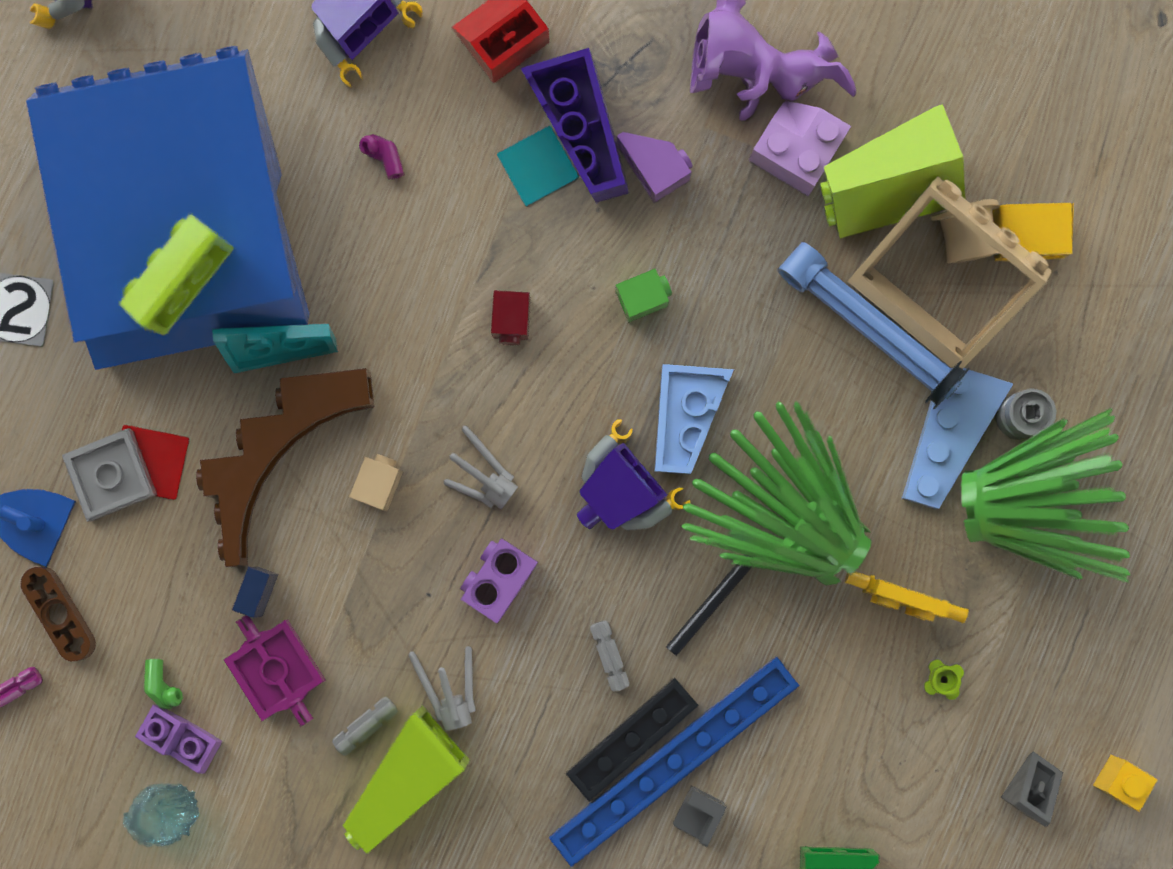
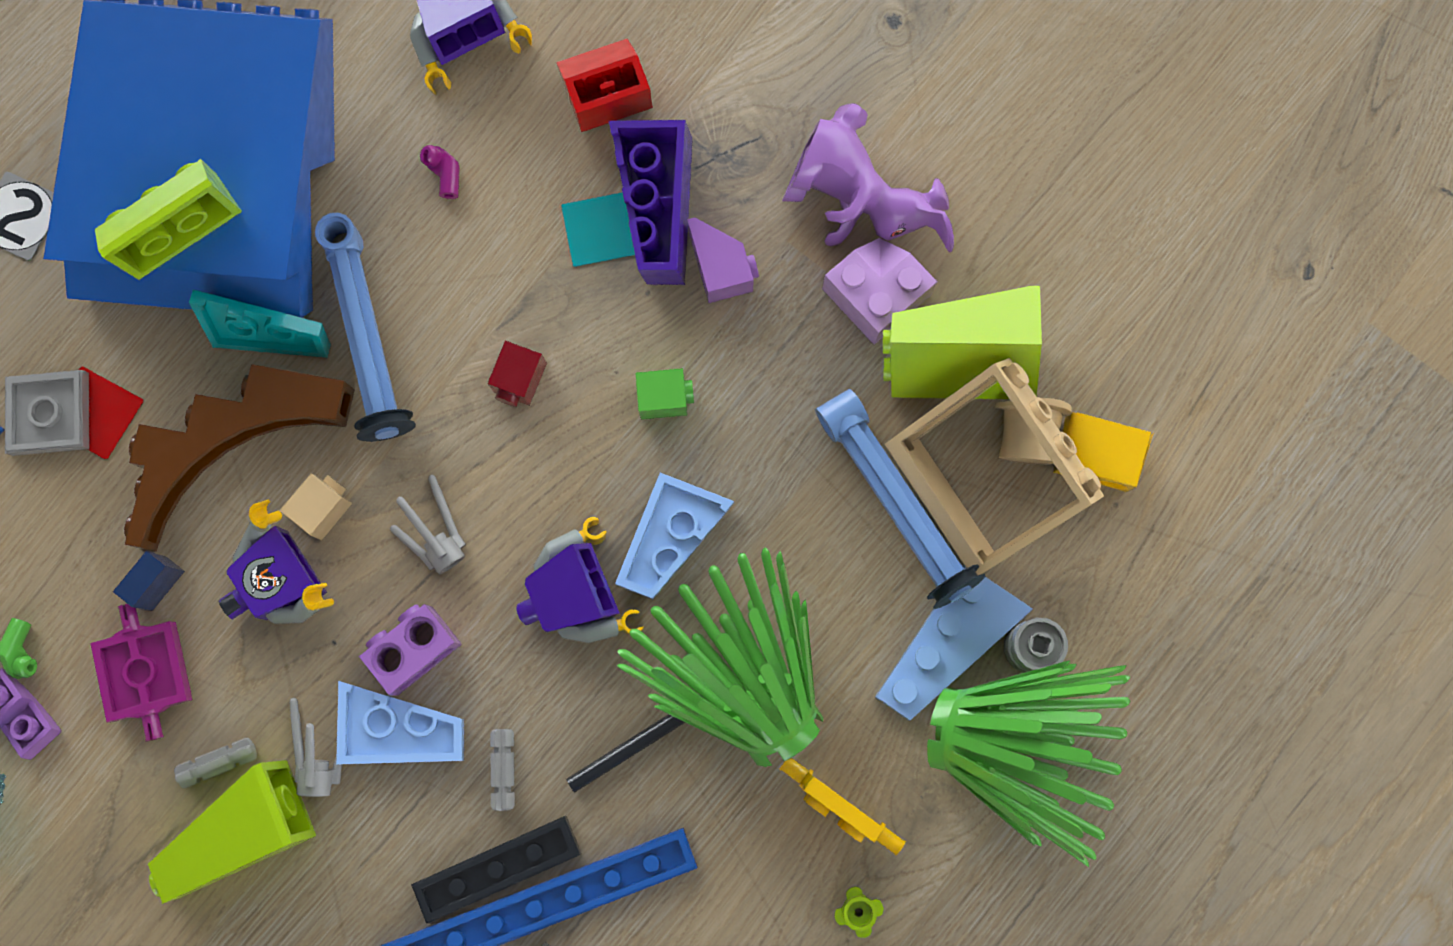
camera: 20 degrees right, 5 degrees down
(360, 554) = (272, 574): none -> torso
(363, 319) = (382, 417): none -> medium blue piece
(507, 652) = (392, 730): none -> light blue wing

